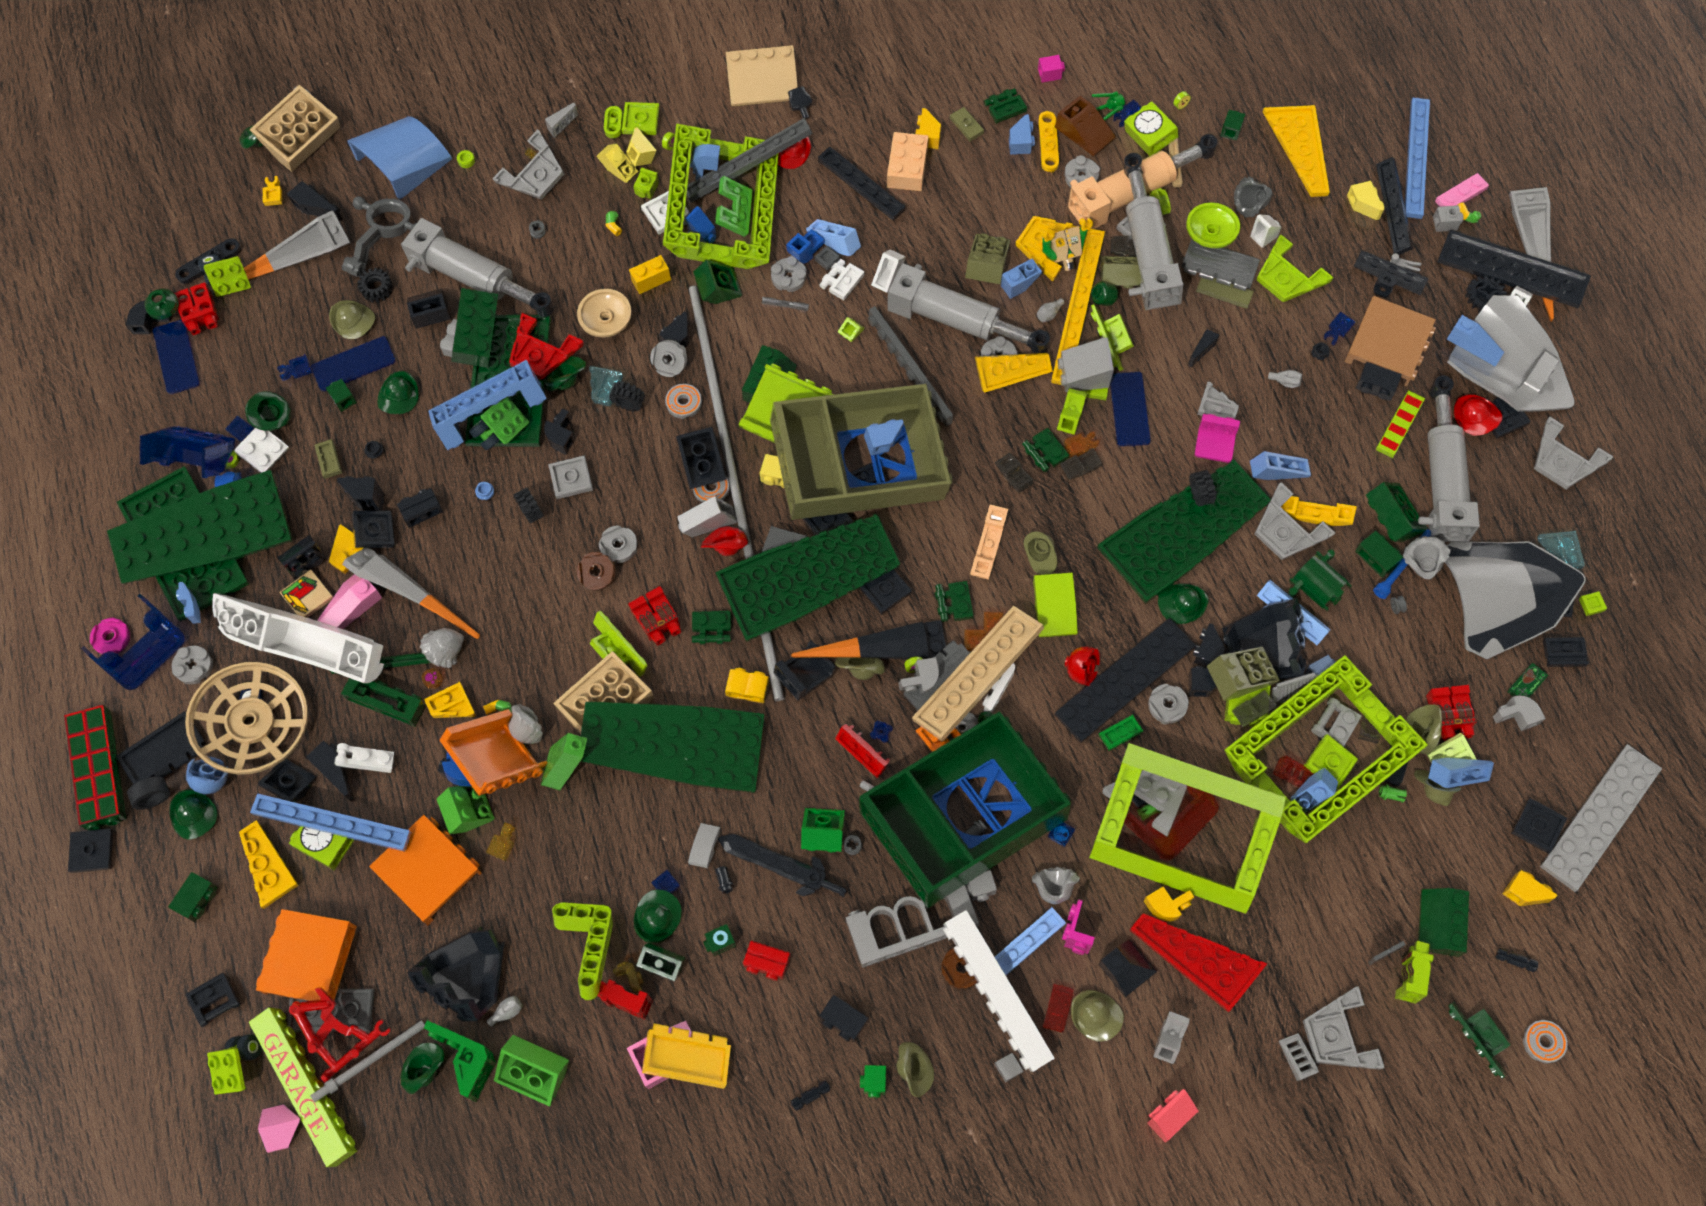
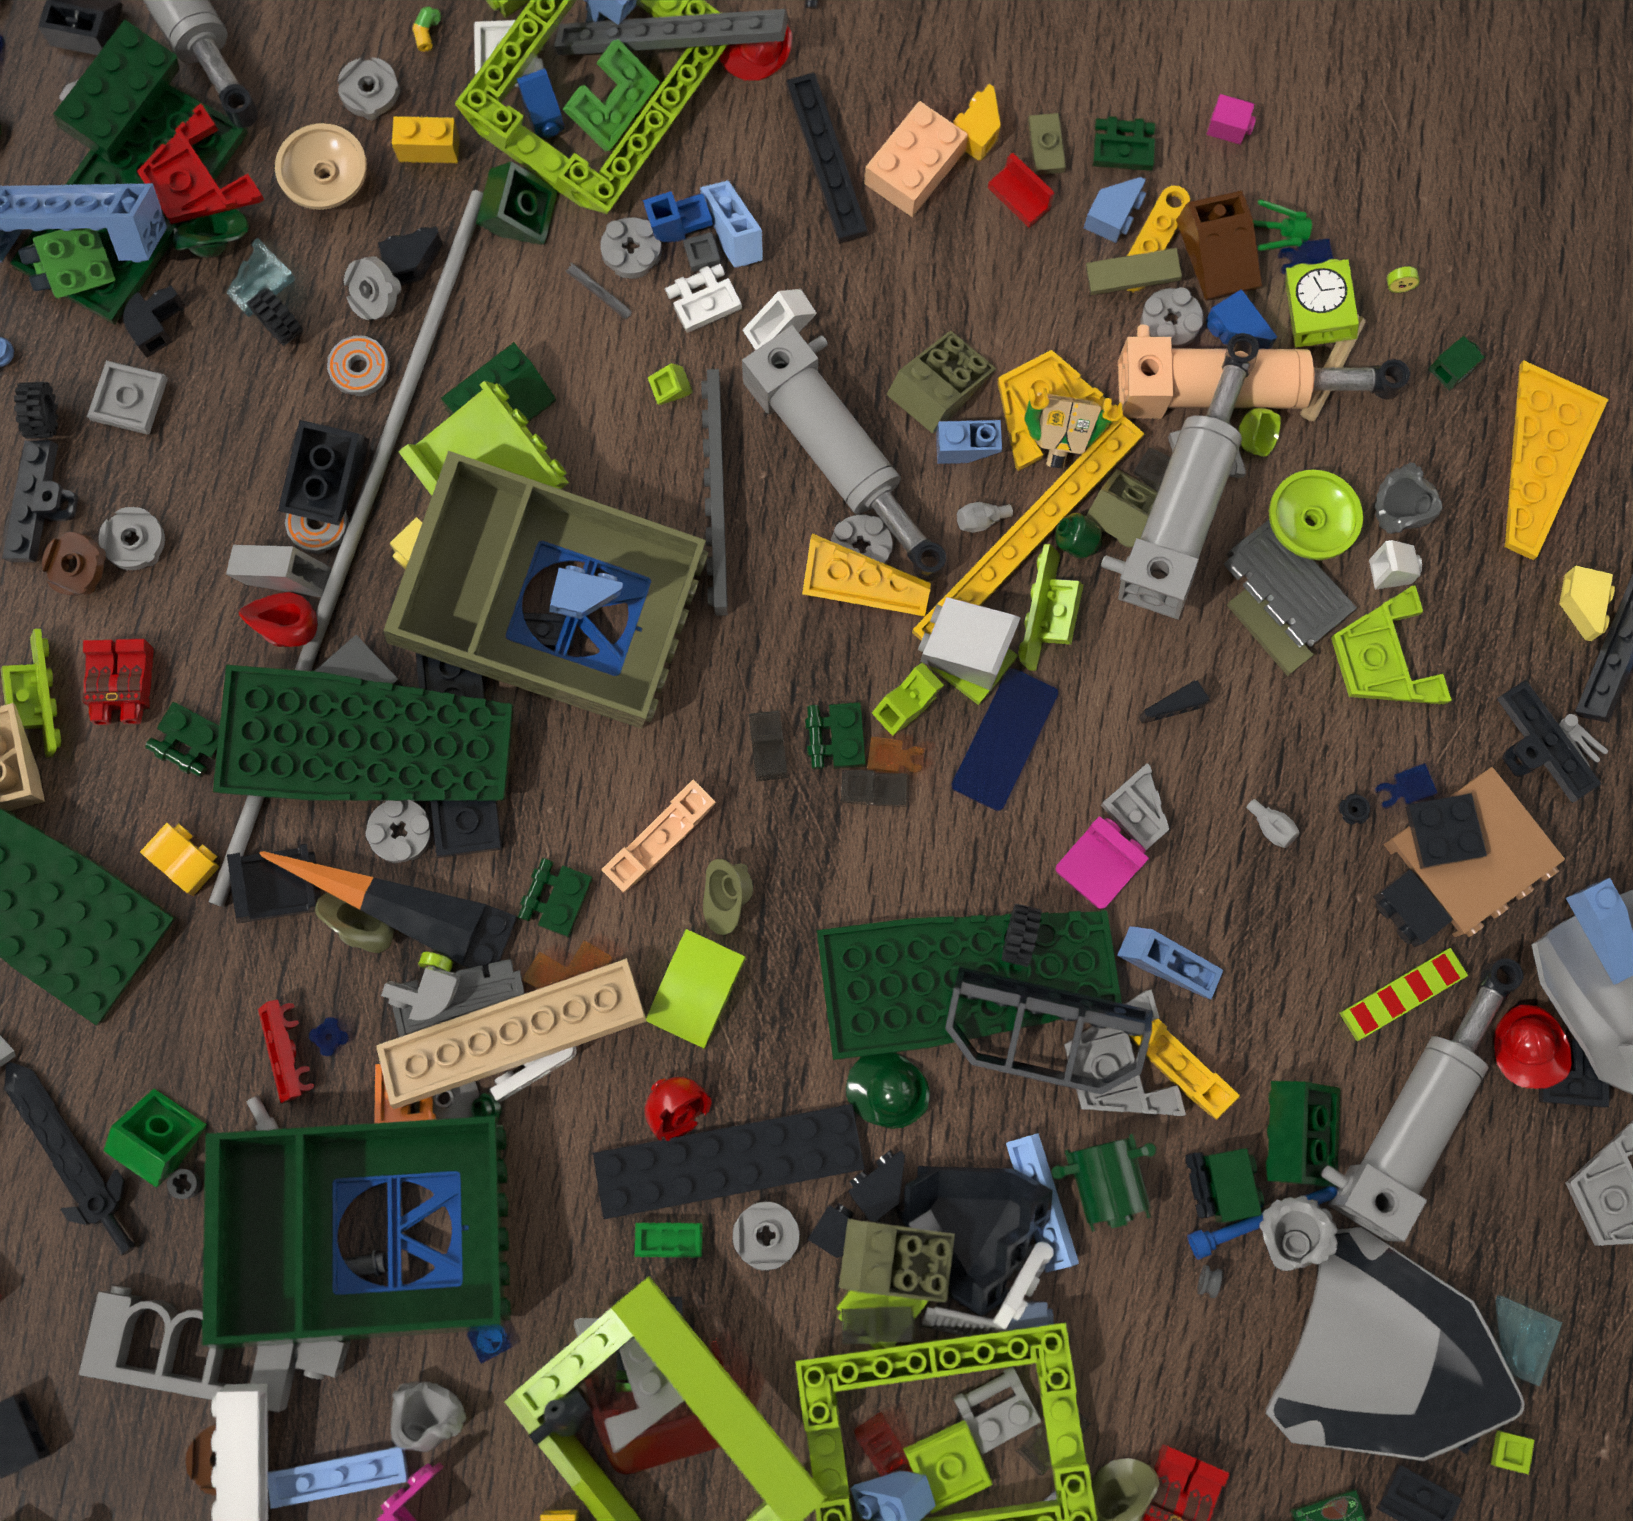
camera: 25 degrees right, 10 degrees up
(554, 552) = (34, 501): none -> black plate
(604, 274) = (370, 103): none -> light grey plate
(849, 602) = (401, 849): none -> light grey plate
(969, 150) = (1022, 191): none -> red panel
(1050, 160) = (1133, 271): none -> olive tile
(1113, 157) = (1239, 316): none -> blue slope
(1129, 836) = (563, 1417): none -> black piece
(1246, 510) = (1053, 1001): none -> black plate
(1312, 651) = (1024, 1284): none -> white plate
(1363, 563) = (1200, 1185): none -> black axle
(1371, 335) = (1446, 831): none -> black plate

